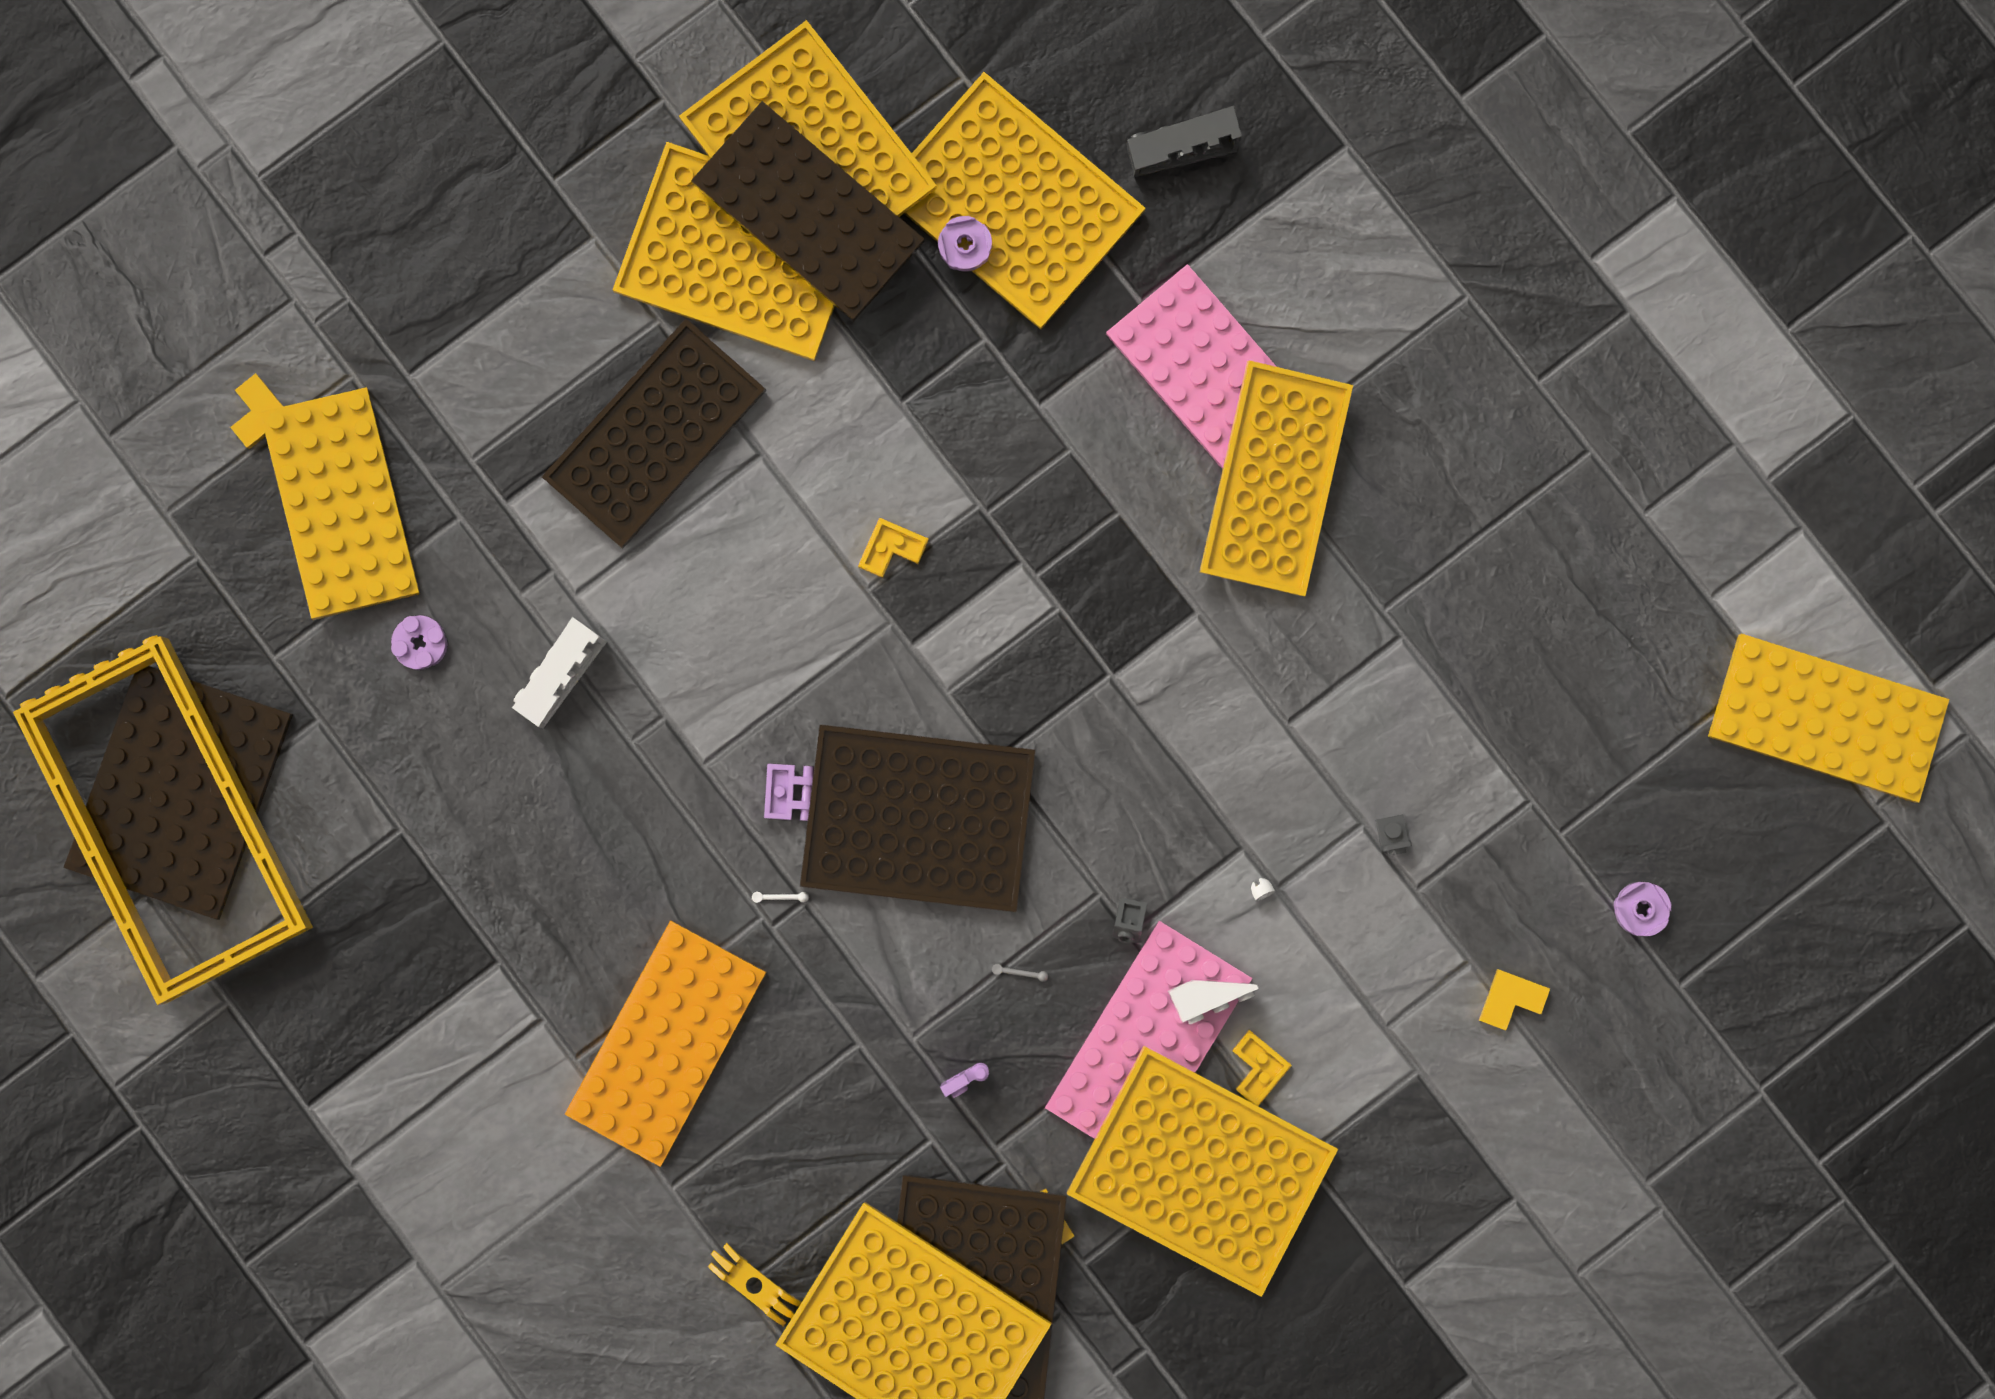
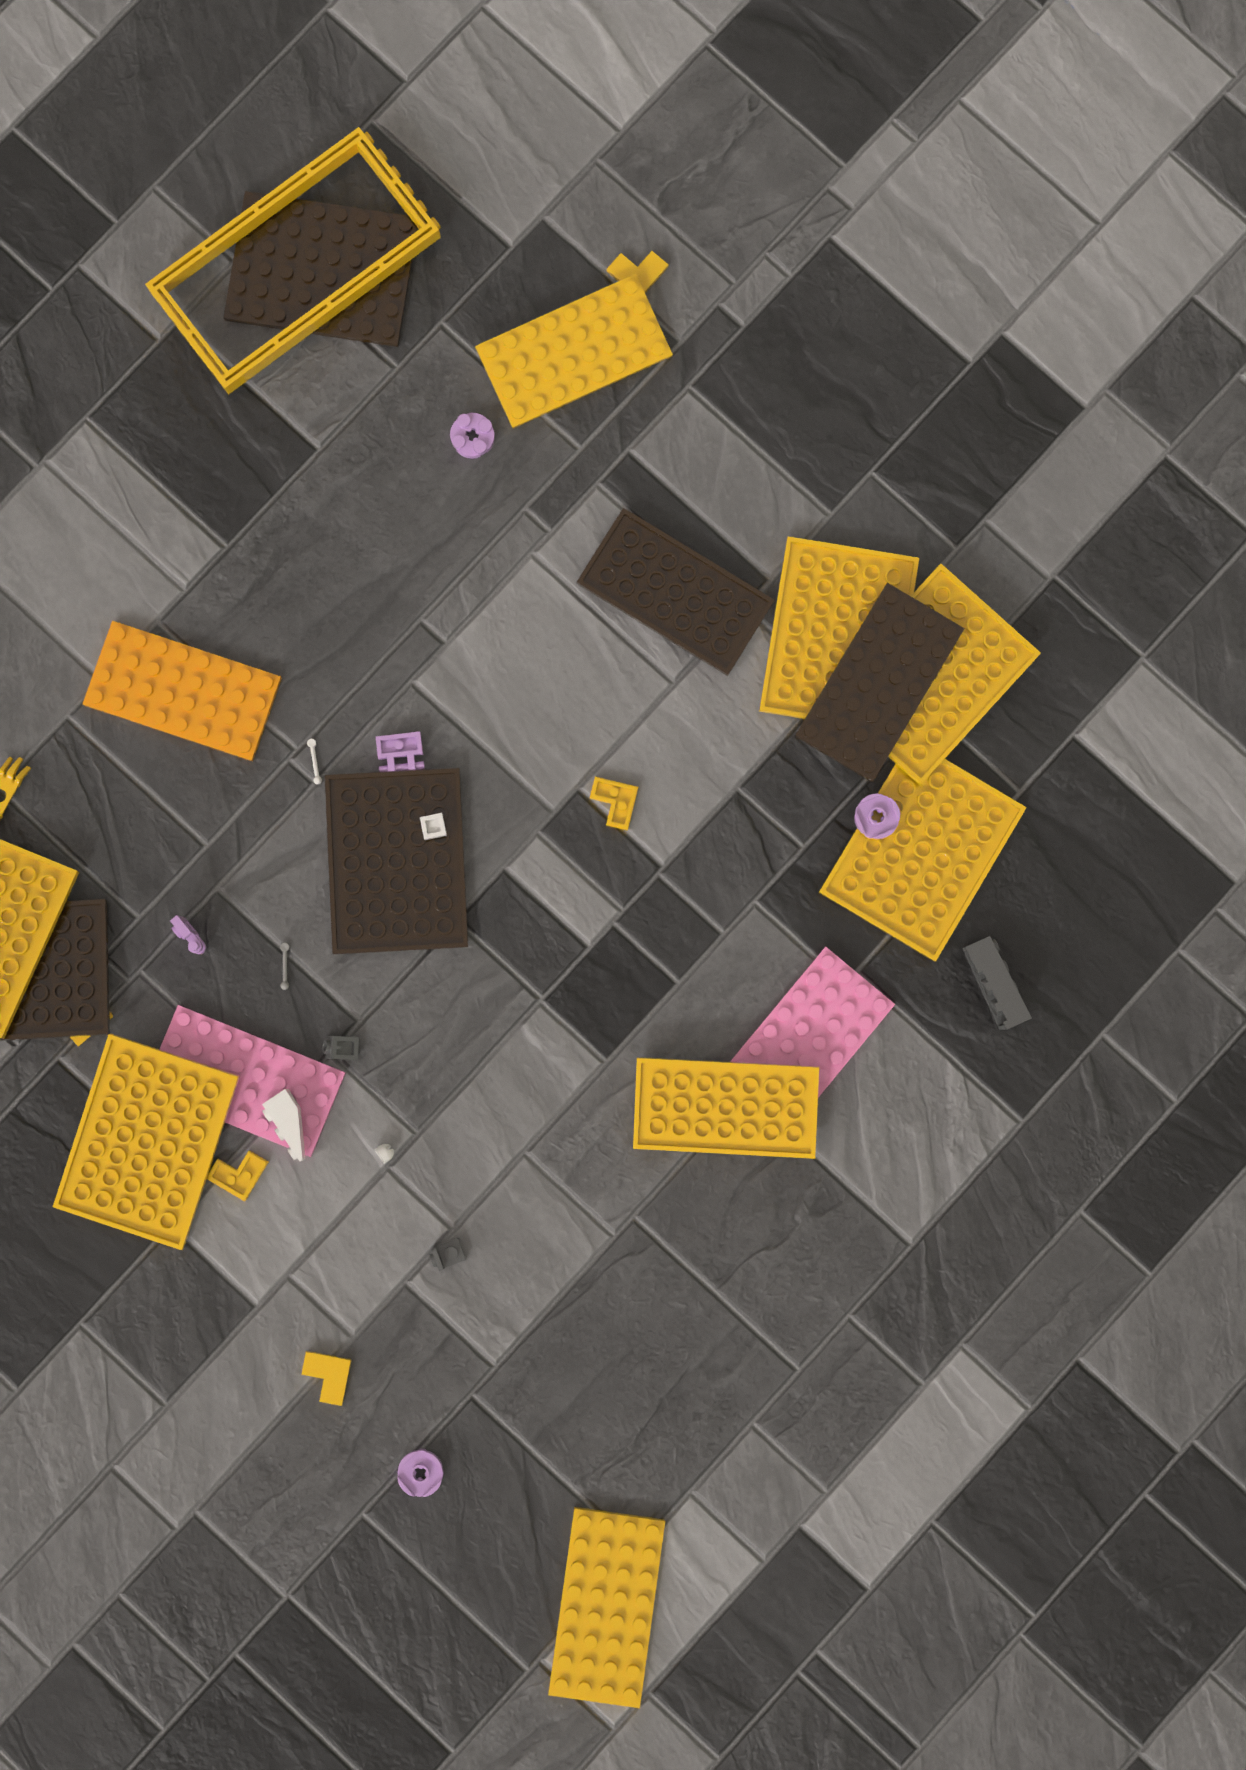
camera: 75 degrees right, 0 degrees up
(558, 673) = (465, 550): white wedge -> none
(885, 765) = (433, 826): none -> white plate

